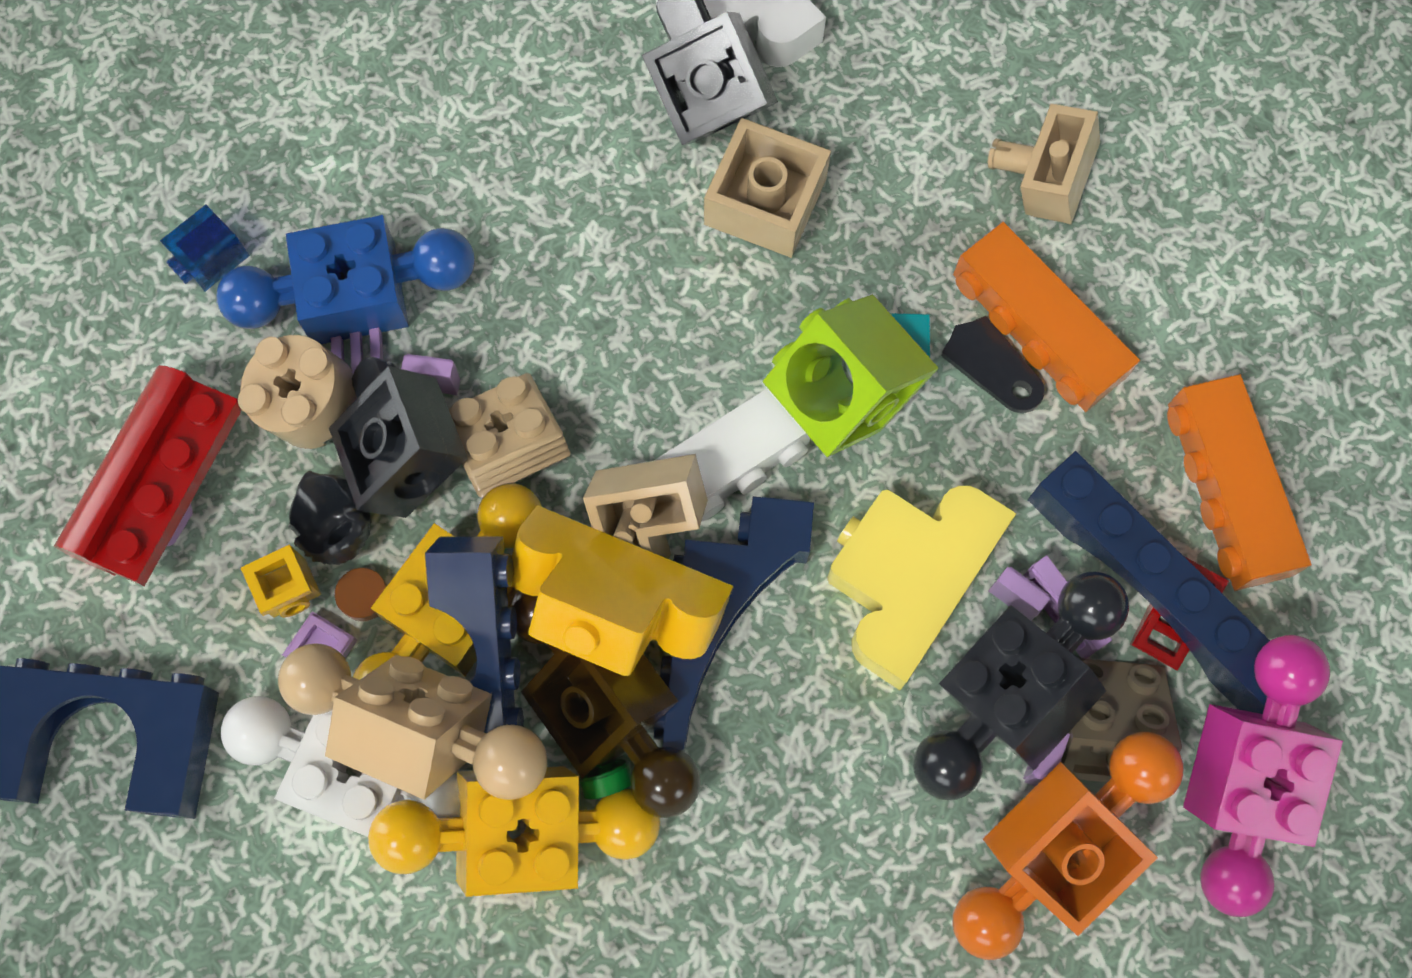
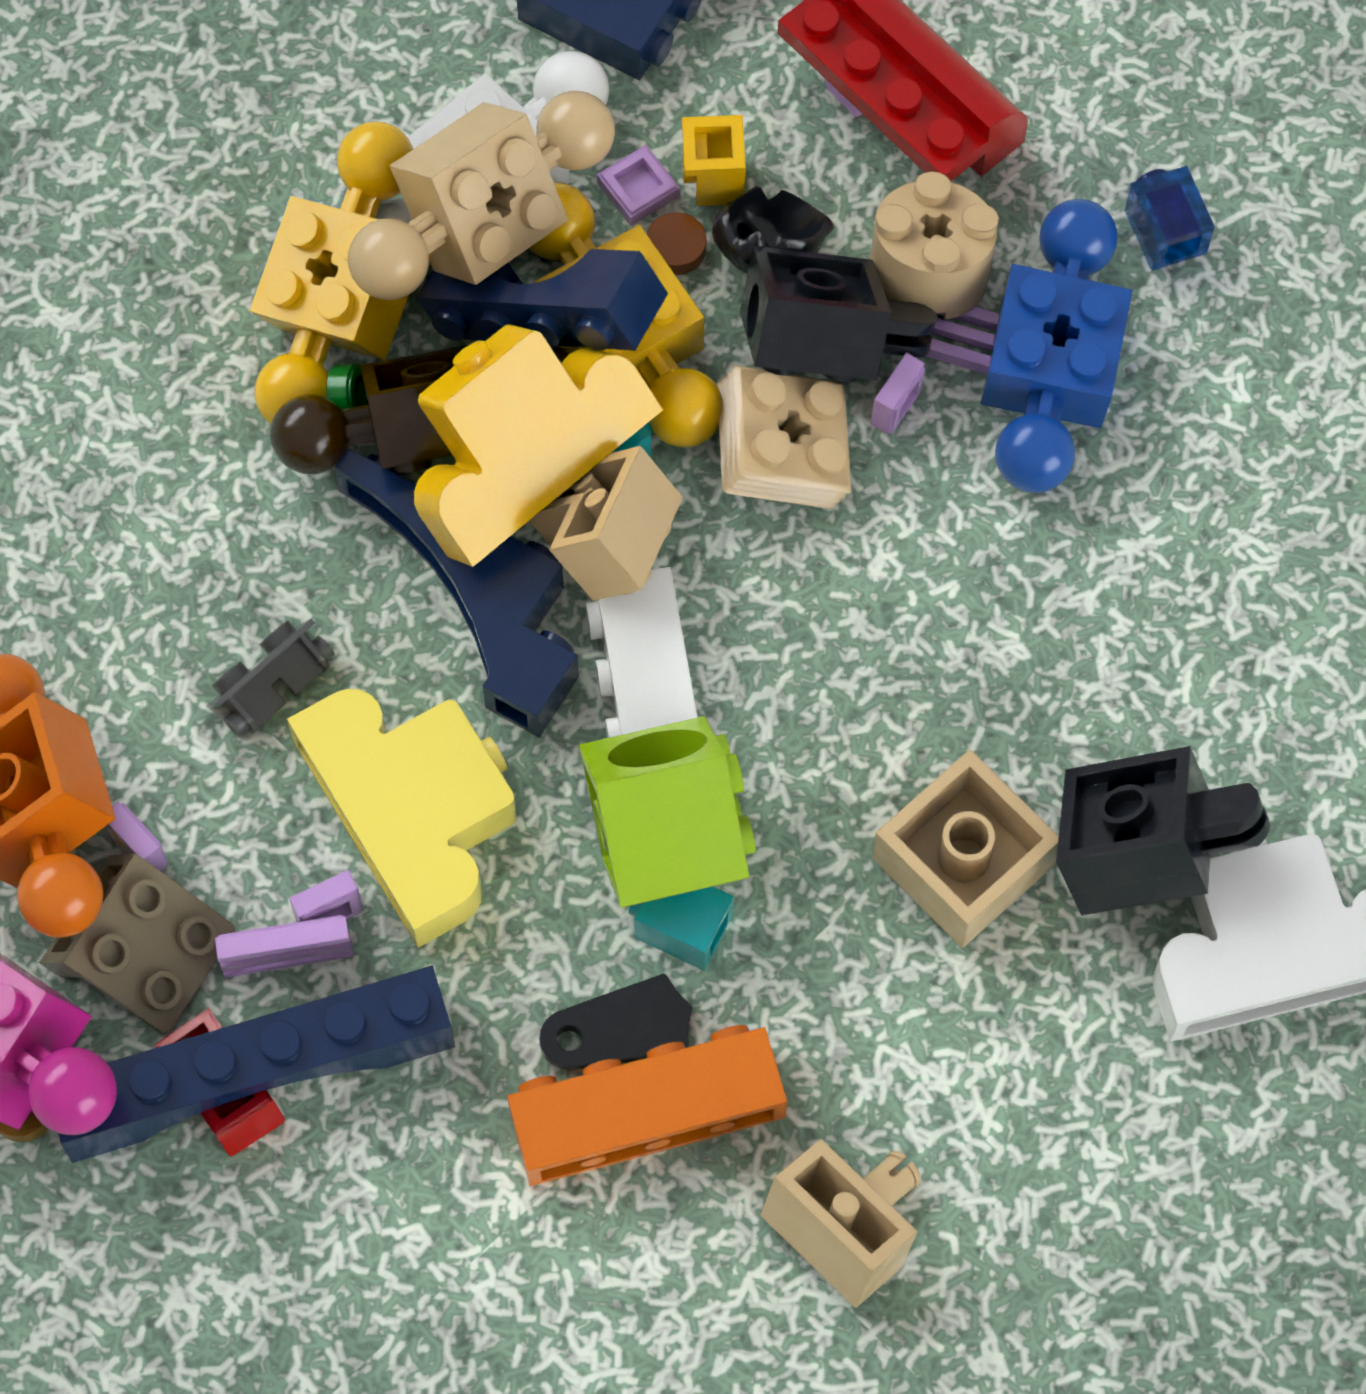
camera: 115 degrees right, 5 degrees down
(887, 738) = (250, 691): none -> dark grey hinge
(1022, 686) = (217, 830): black brick -> none
(1237, 483) = (326, 1213): orange brick -> none

